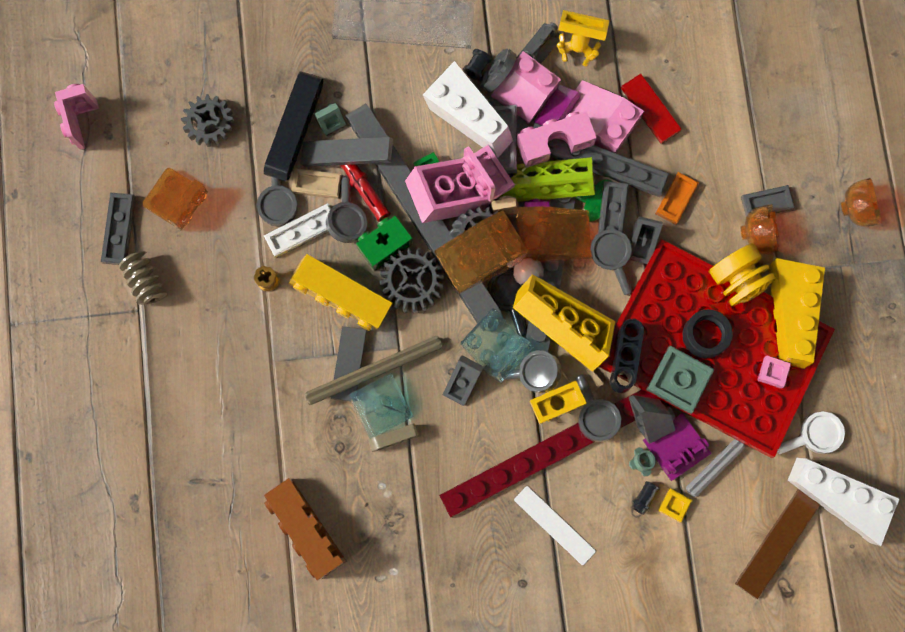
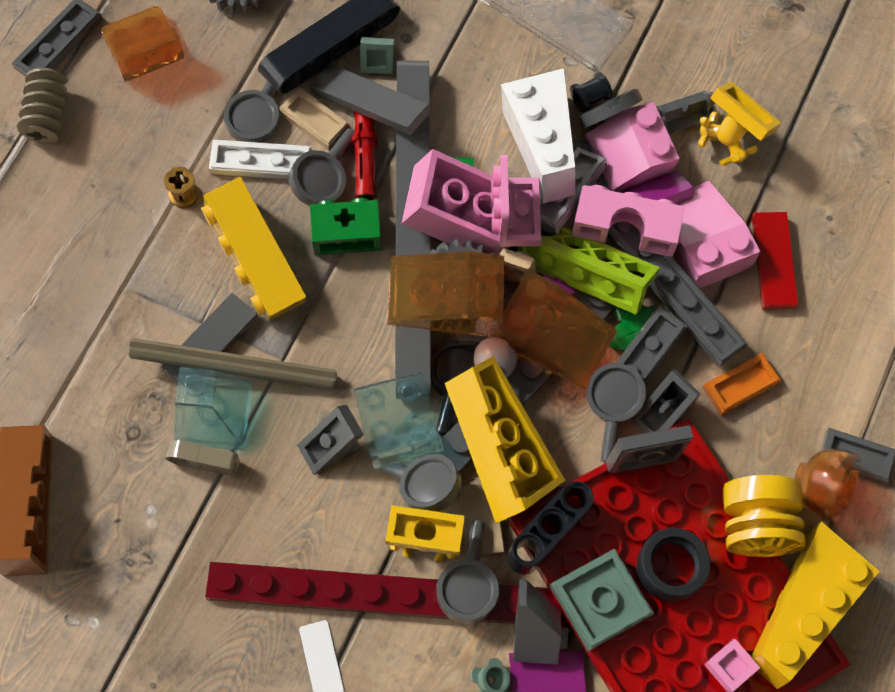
camera: 30 degrees right, 10 degrees down
(404, 287) = (335, 290): dark grey gear -> none
(655, 275) = (648, 449): none -> dark grey tile

